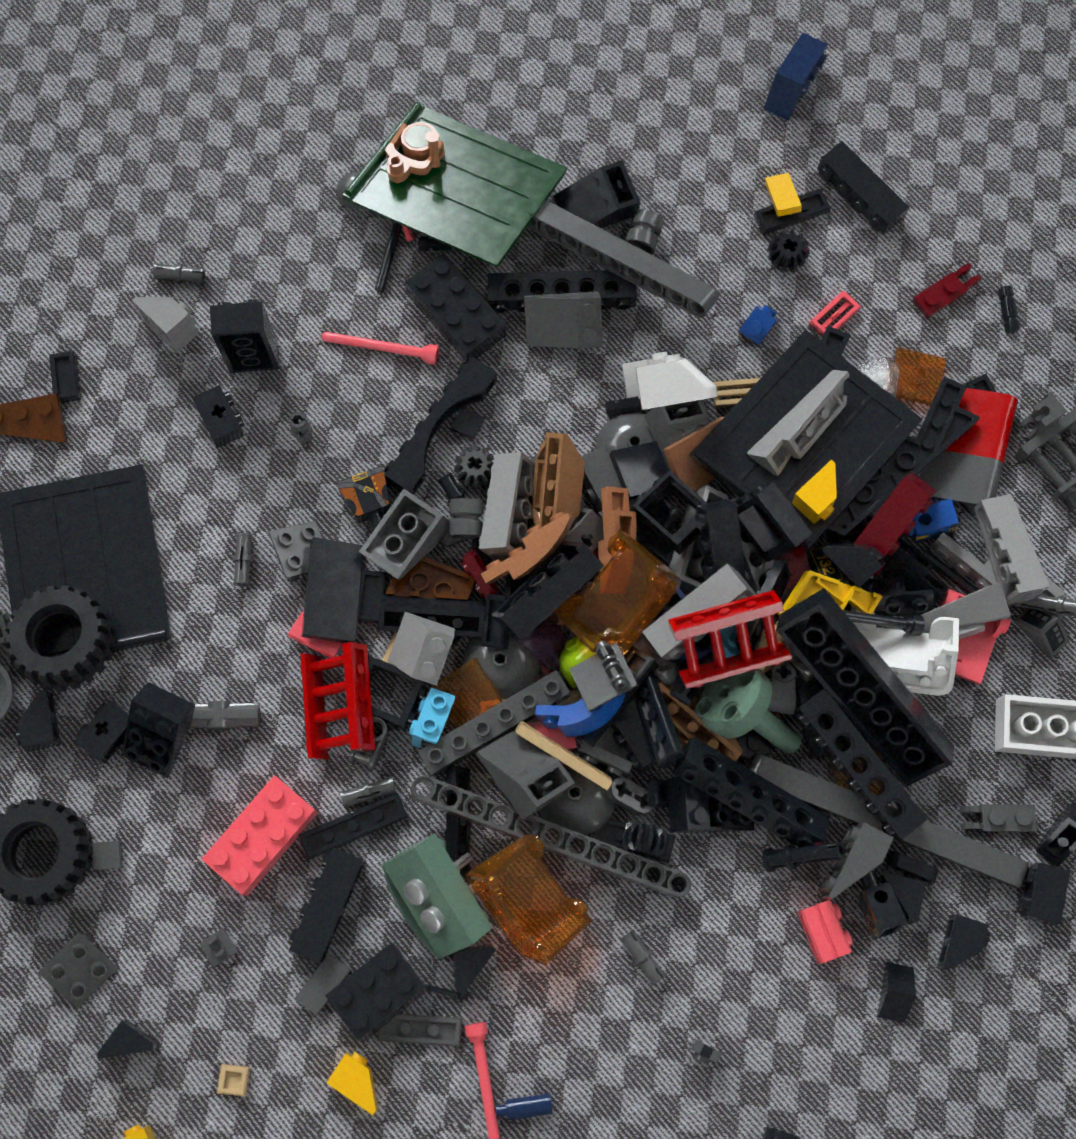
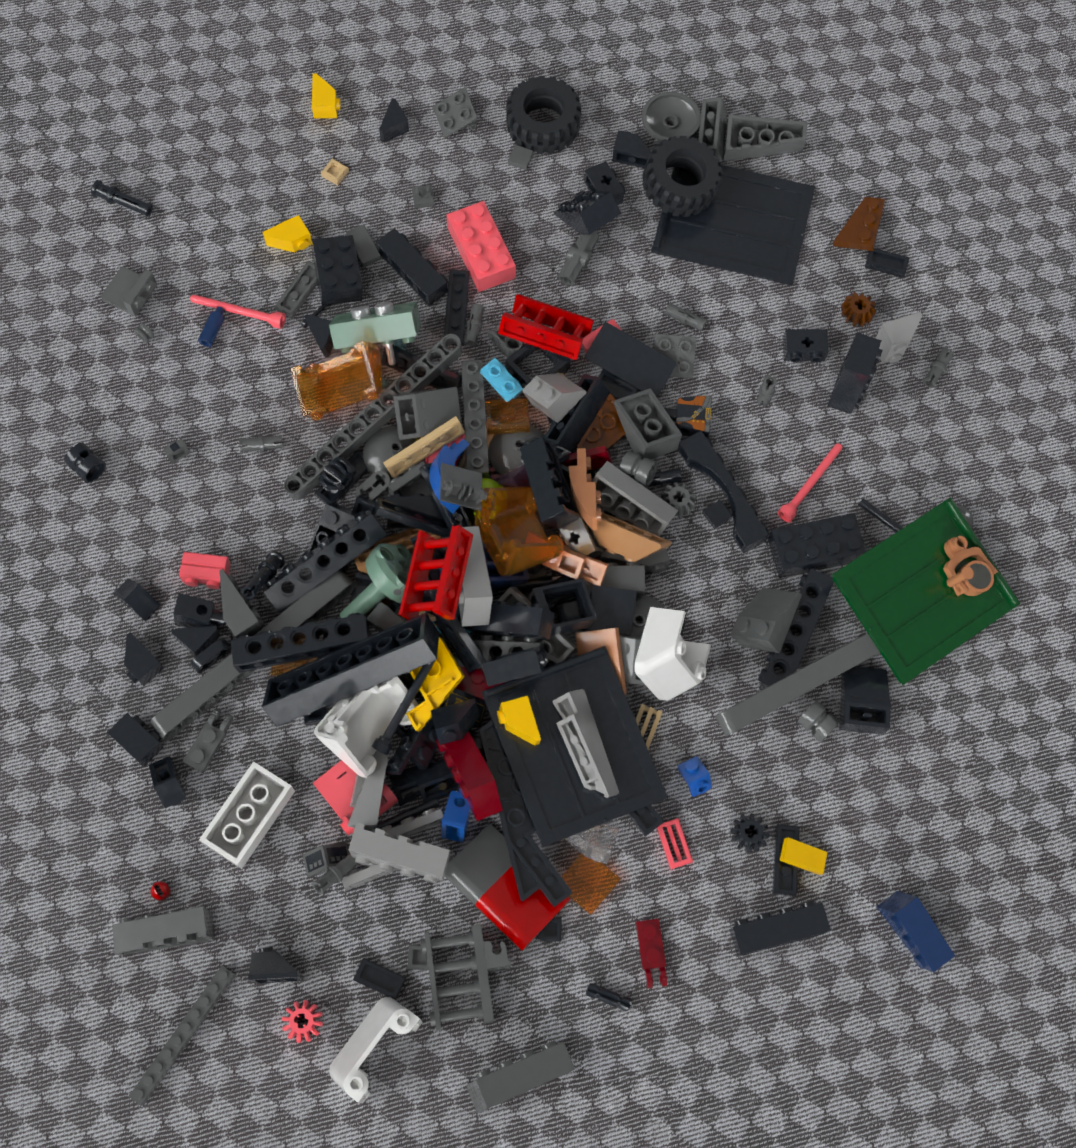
camera: 115 degrees right, 5 degrees down
(136, 380) = (858, 309): none -> reddish brown gear

